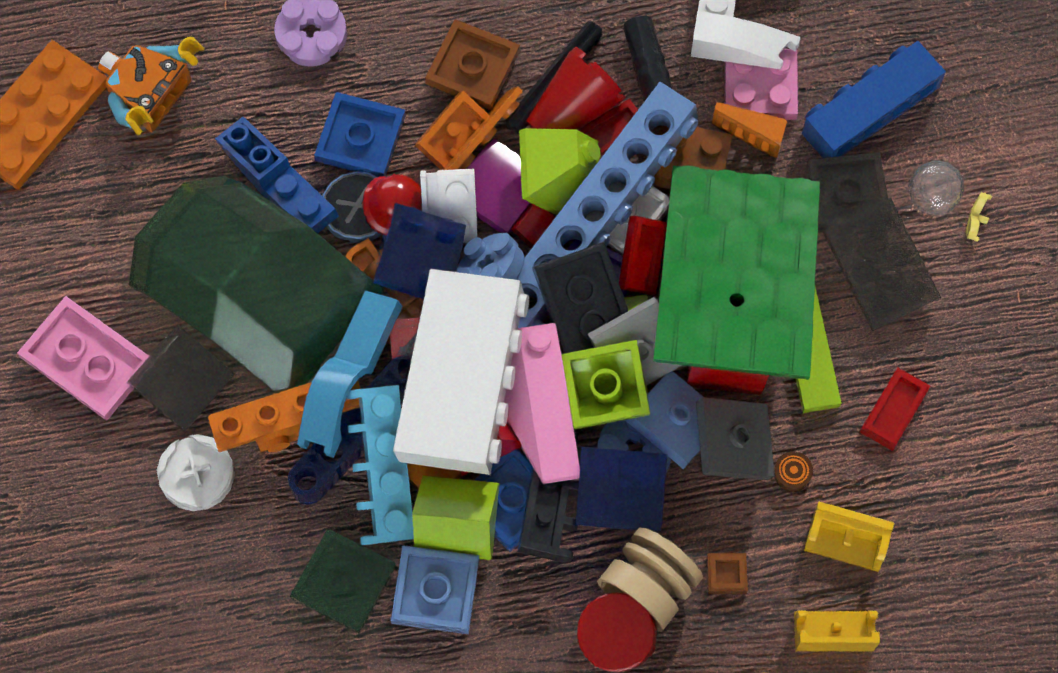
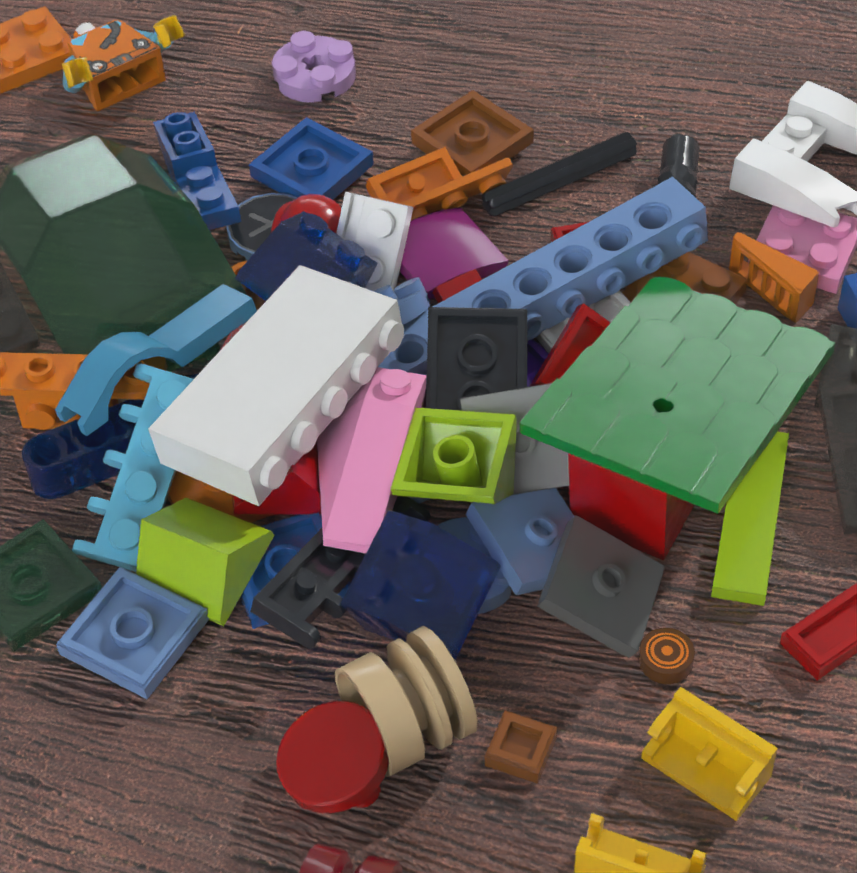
camera: 25 degrees right, 20 degrees down
(555, 165) = (506, 227): lime slope -> none
(575, 95) = (567, 188): red cone -> none

